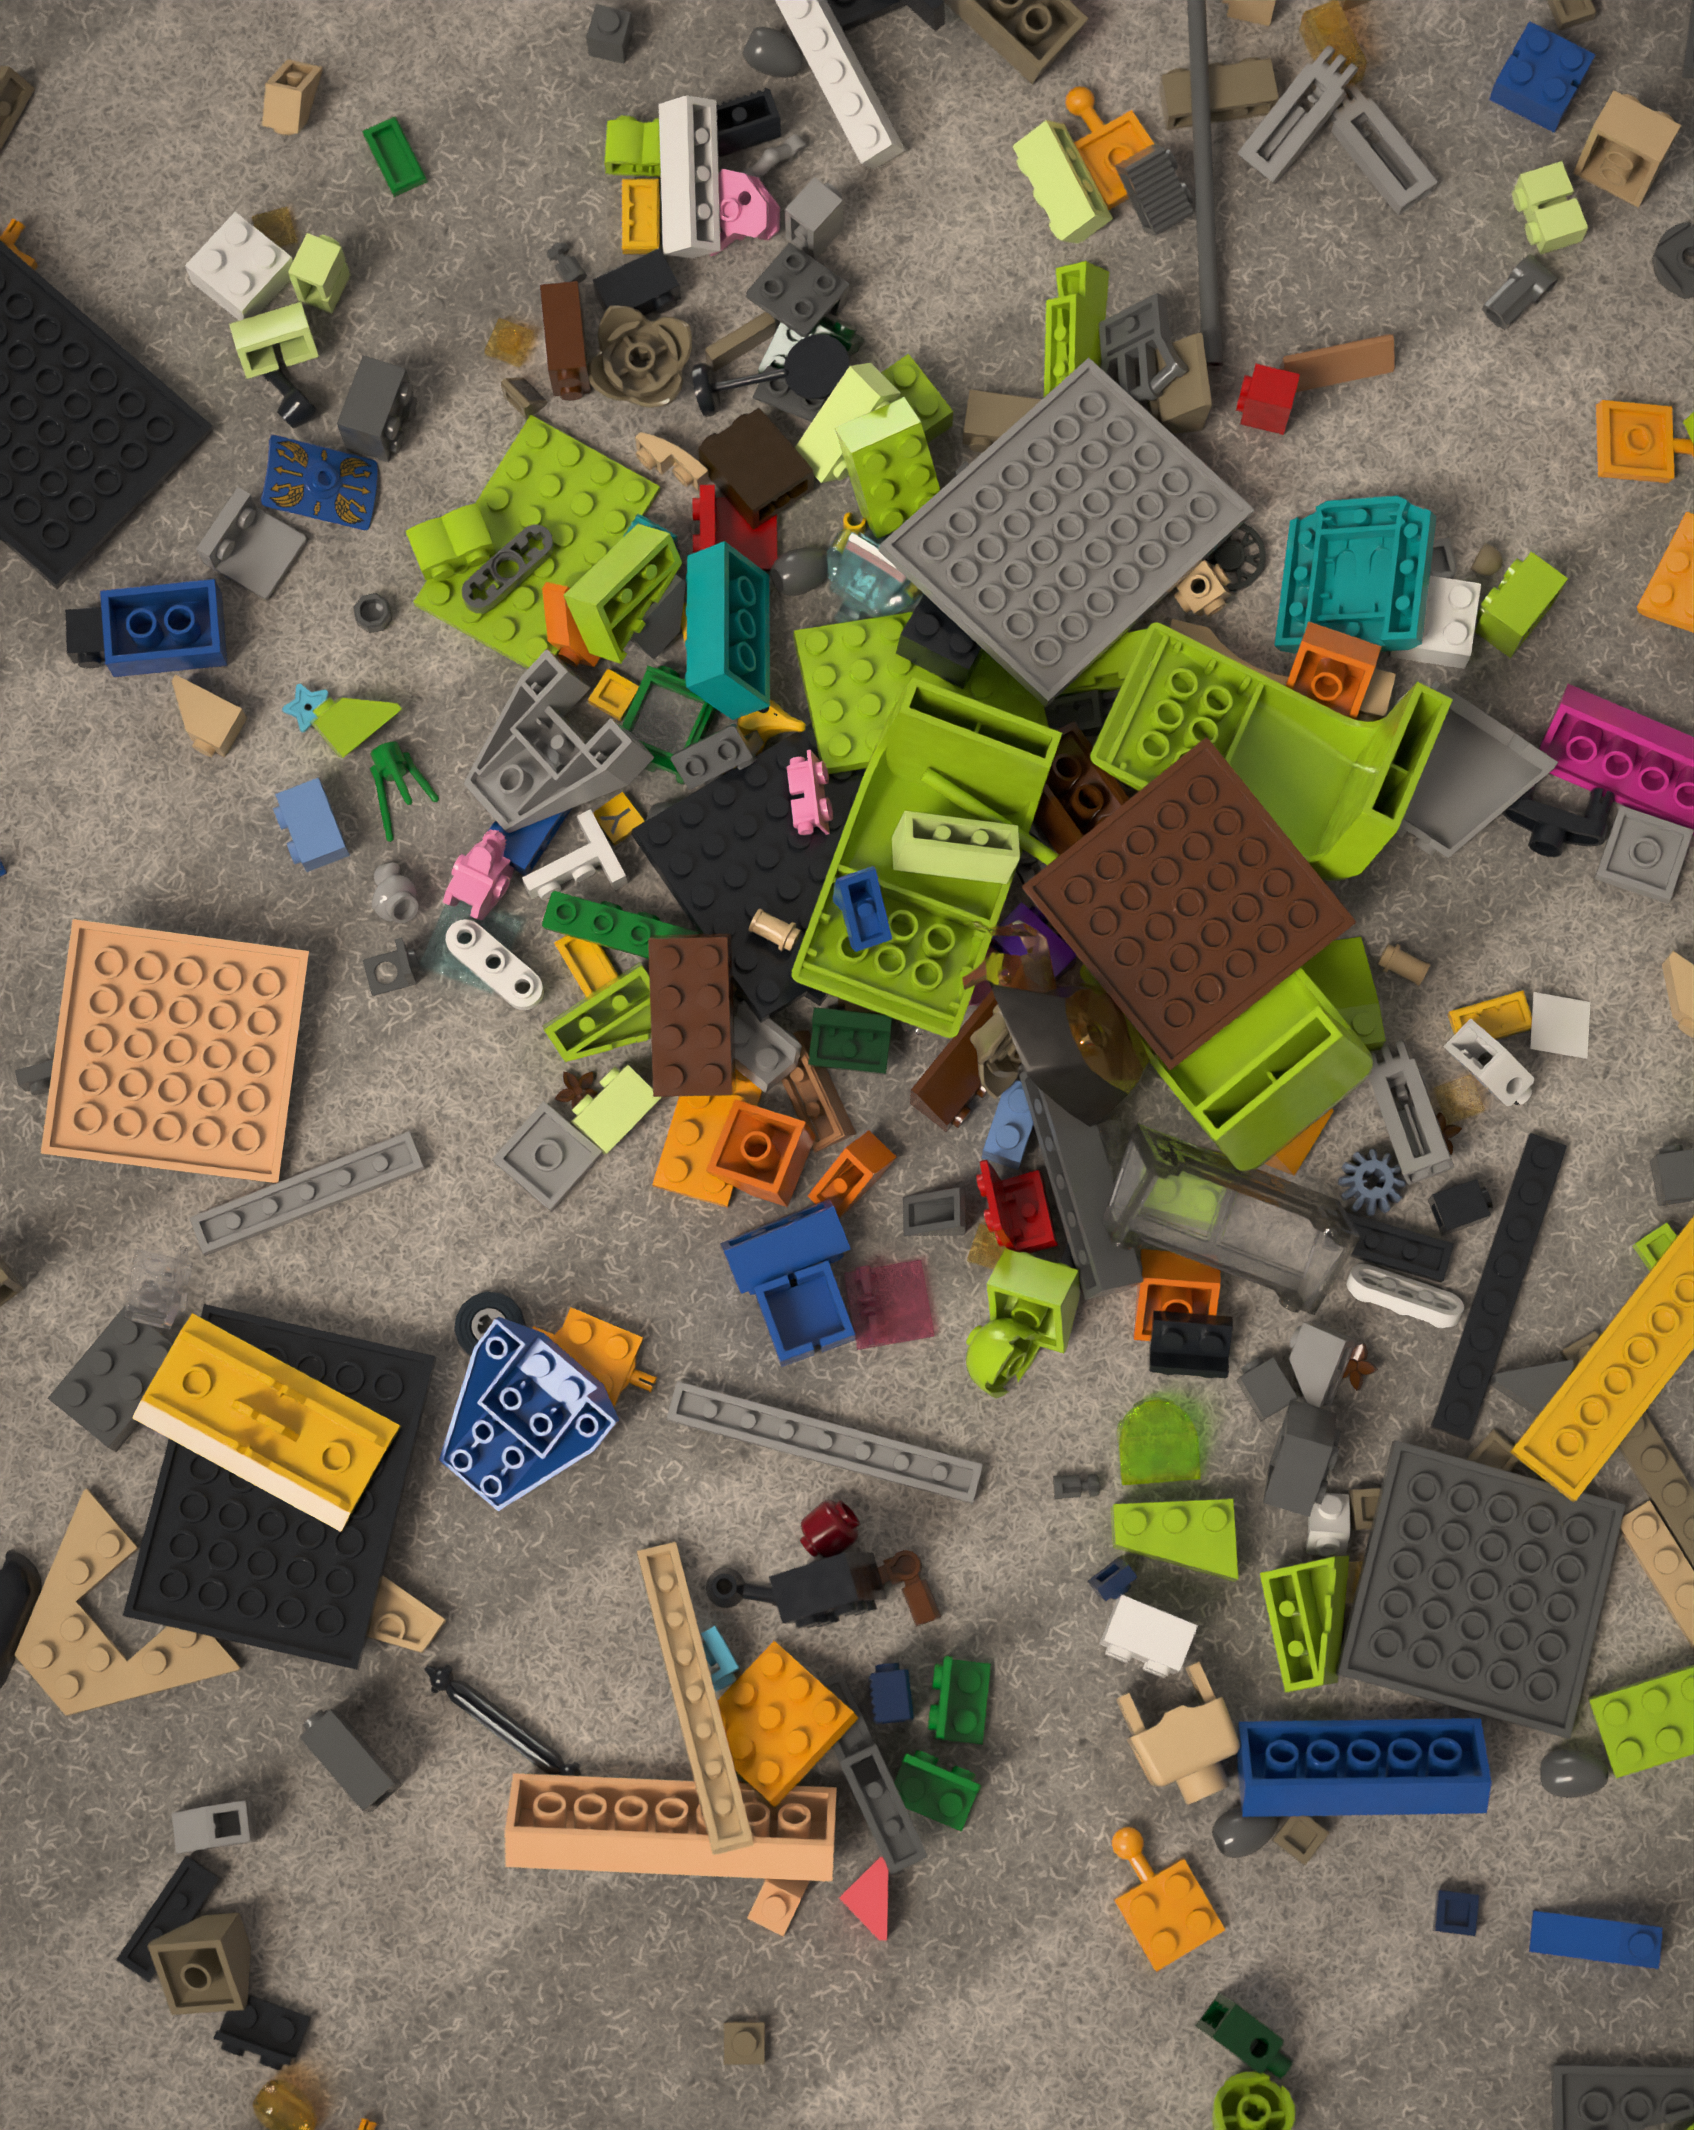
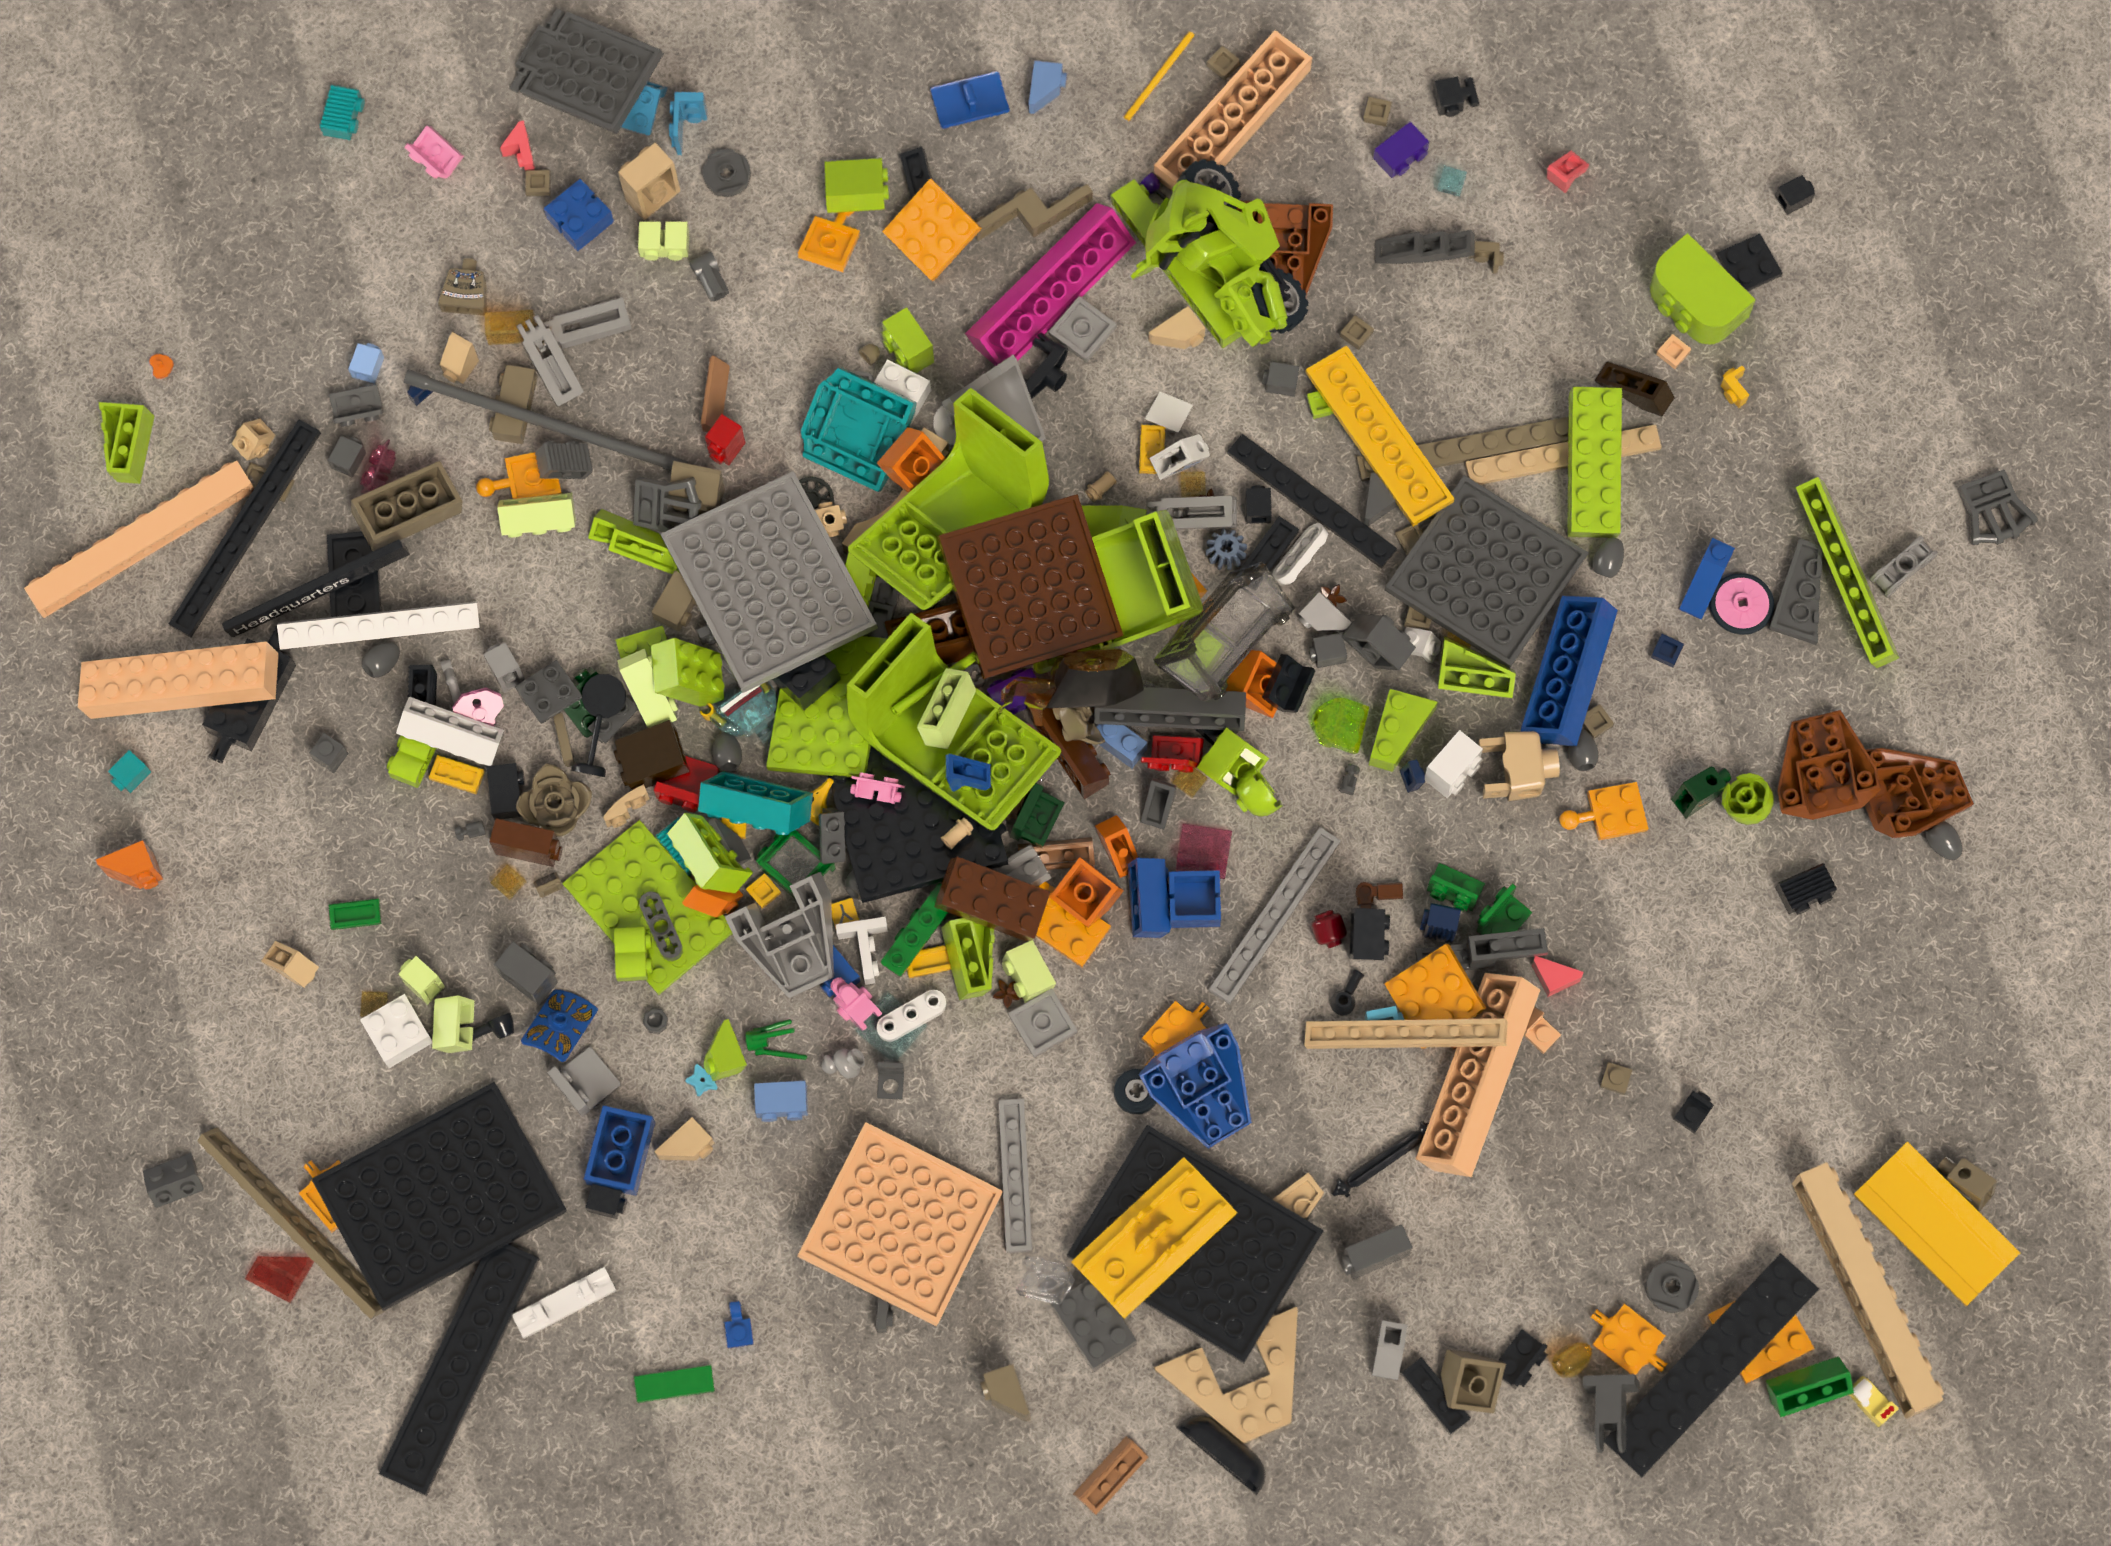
camera: 70 degrees left, 5 degrees down
(1553, 2023) = (1747, 618): none -> bright pink wheel

